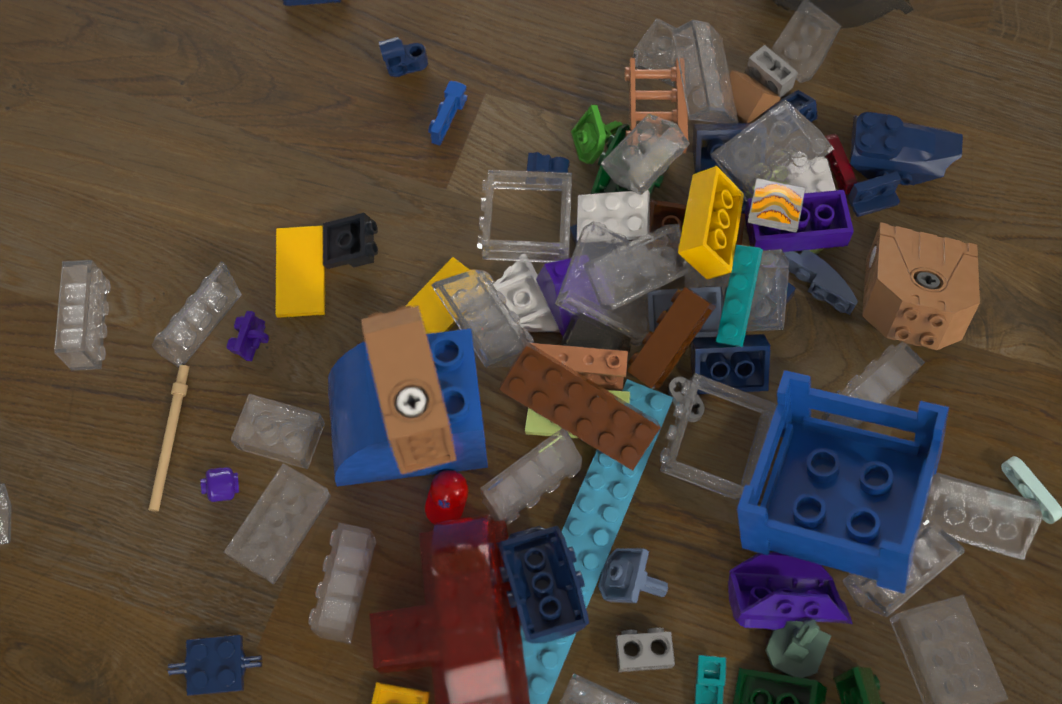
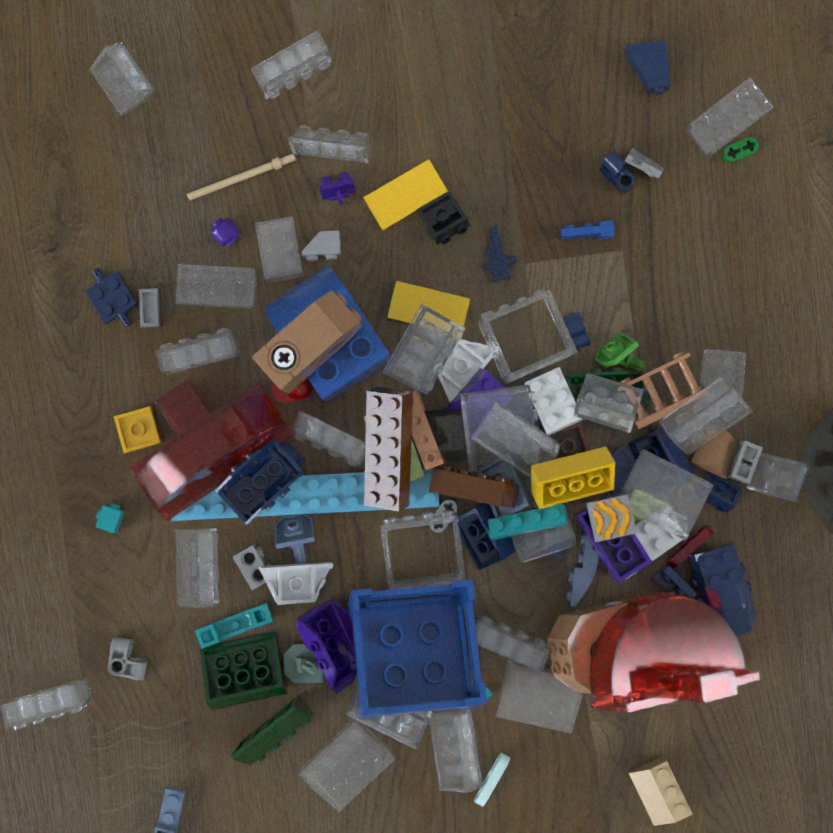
camera: 60 degrees right, 20 degrees up
(255, 624) = (149, 308): none -> light grey tile
(304, 379) = (324, 244): none -> light grey slope
(416, 27) = (644, 163): none -> light grey wing
(426, 212) = (497, 260): none -> dark blue piece
(688, 606) = (295, 581): none -> white wing
(955, 378) = (537, 698): none -> clear slope
(961, 216) = (663, 653): none -> clear red piece

